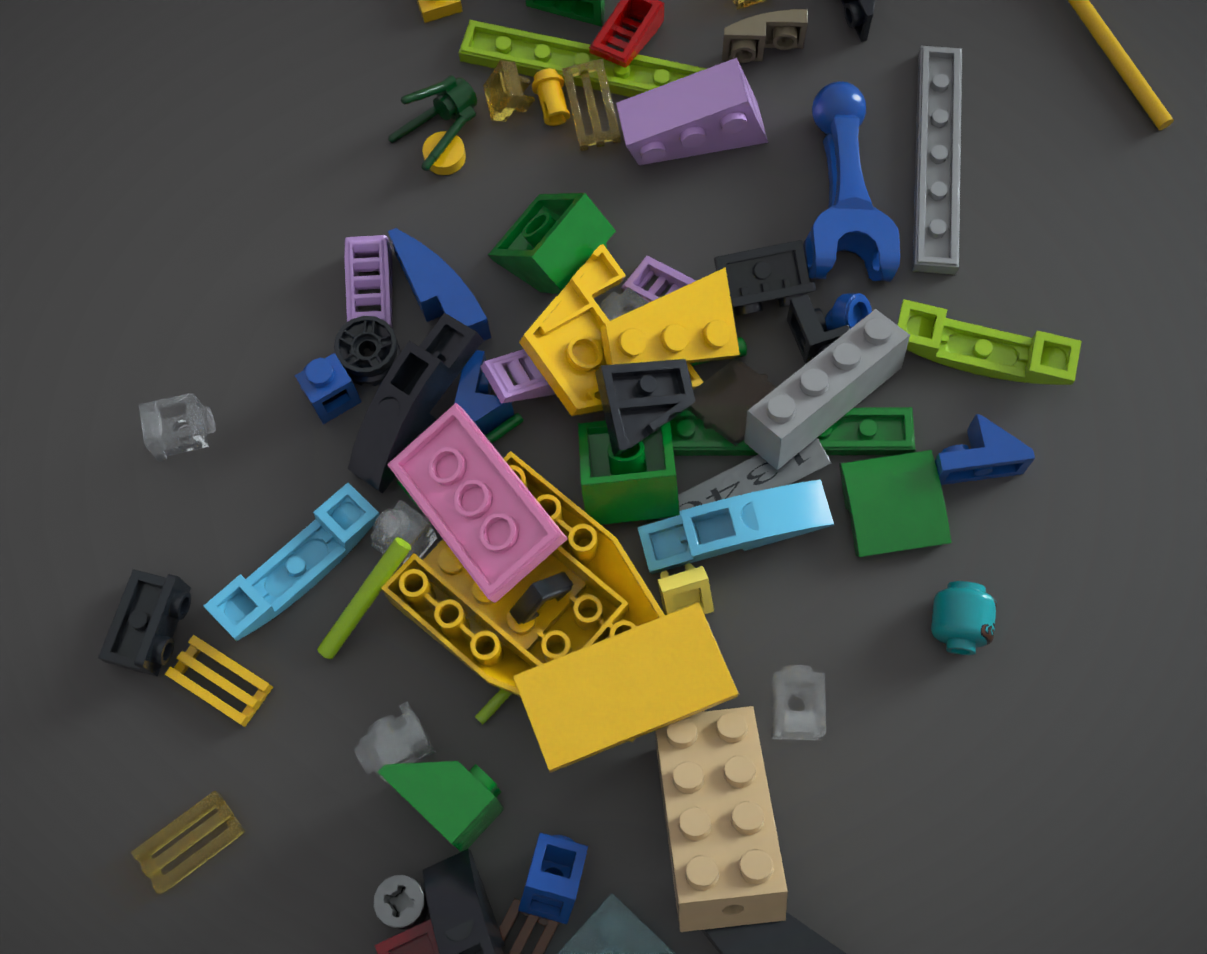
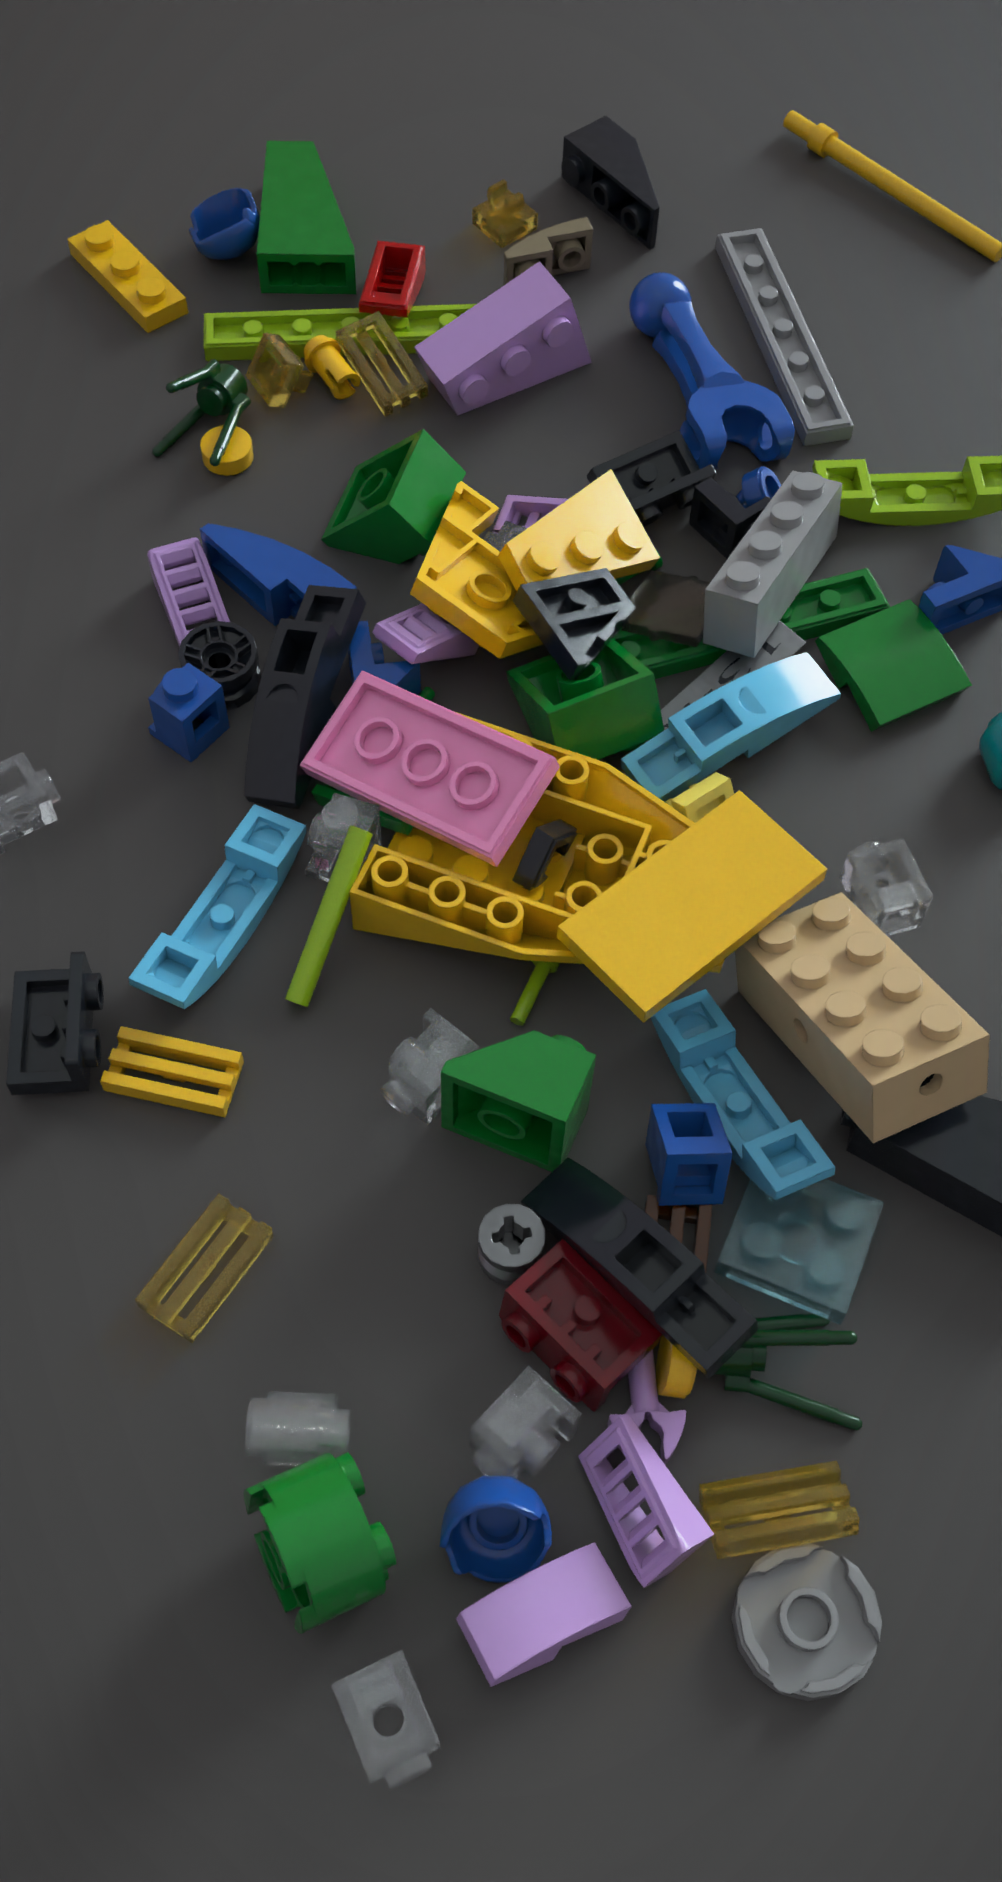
camera: 25 degrees left, 10 degrees down
(611, 850) = (763, 1141): none -> medium azure slope

